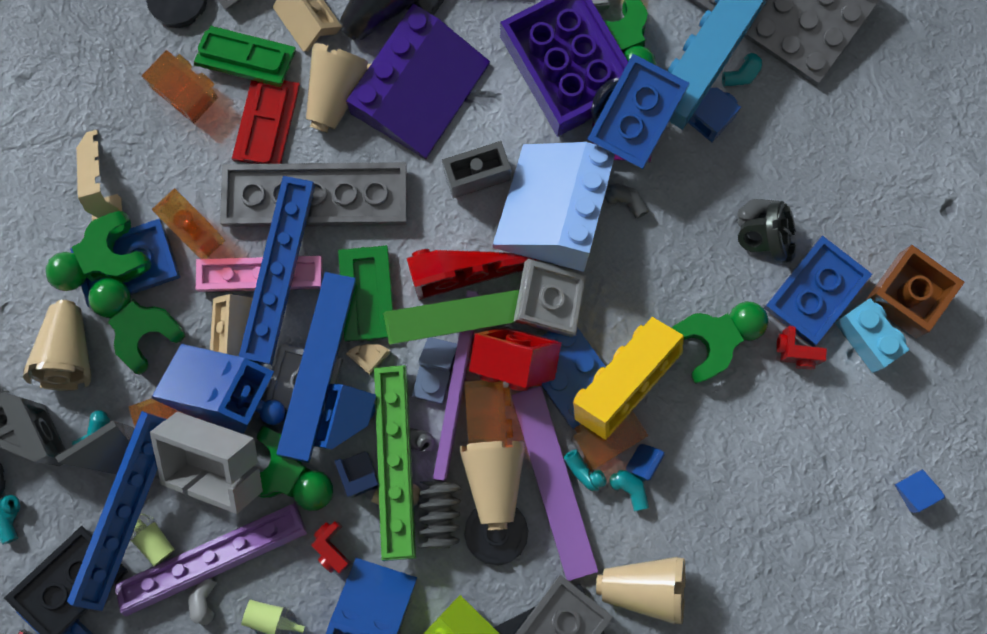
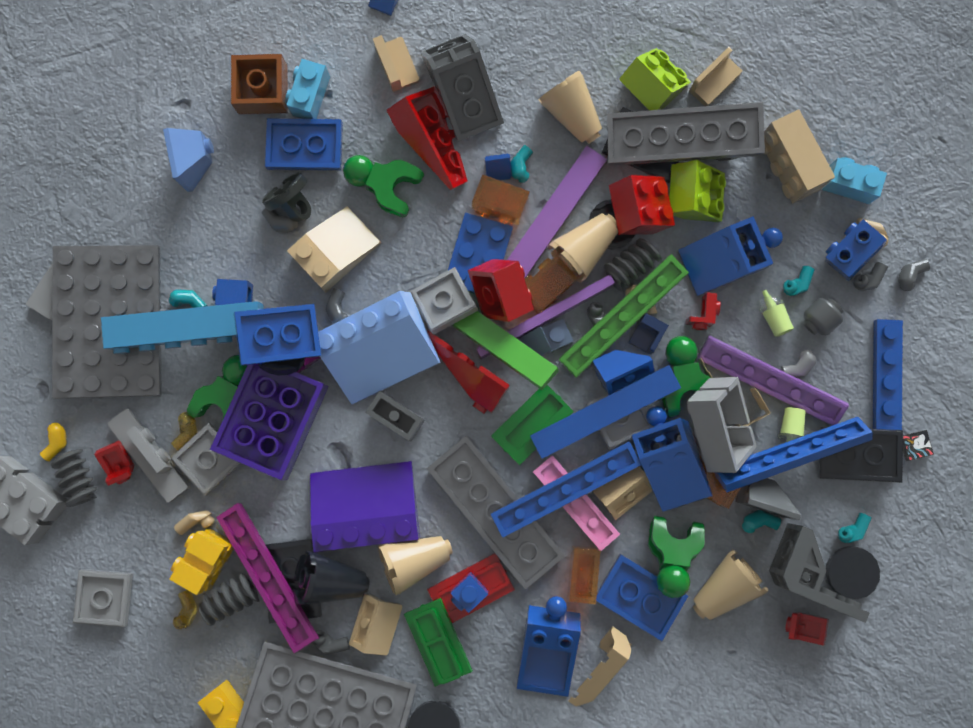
camera: 125 degrees left, 5 degrees up
(95, 256) = (656, 615): green piece -> none
(154, 145) = (549, 648): none -> blue slope
(180, 86) = (495, 667): clear orange brick -> none
(189, 506) = (755, 393): none -> tan piece
(261, 110) = (468, 593): none -> blue brick
(368, 356) = (570, 389): tan tile -> none
(488, 570) = (641, 205): none -> red brick
(581, 471) = (534, 201): teal arm -> none
(628, 377) = (456, 212): yellow brick -> none
(688, 239) = (334, 248): none -> slope
(738, 420) = (424, 127): none -> red wedge
(761, 492) = (463, 86): none -> dark grey bracket
(804, 356) = (354, 121): red bracket -> none
(837, 448) = (396, 62): none -> tan panel
(888, 168) = (188, 155): none -> medium blue slope

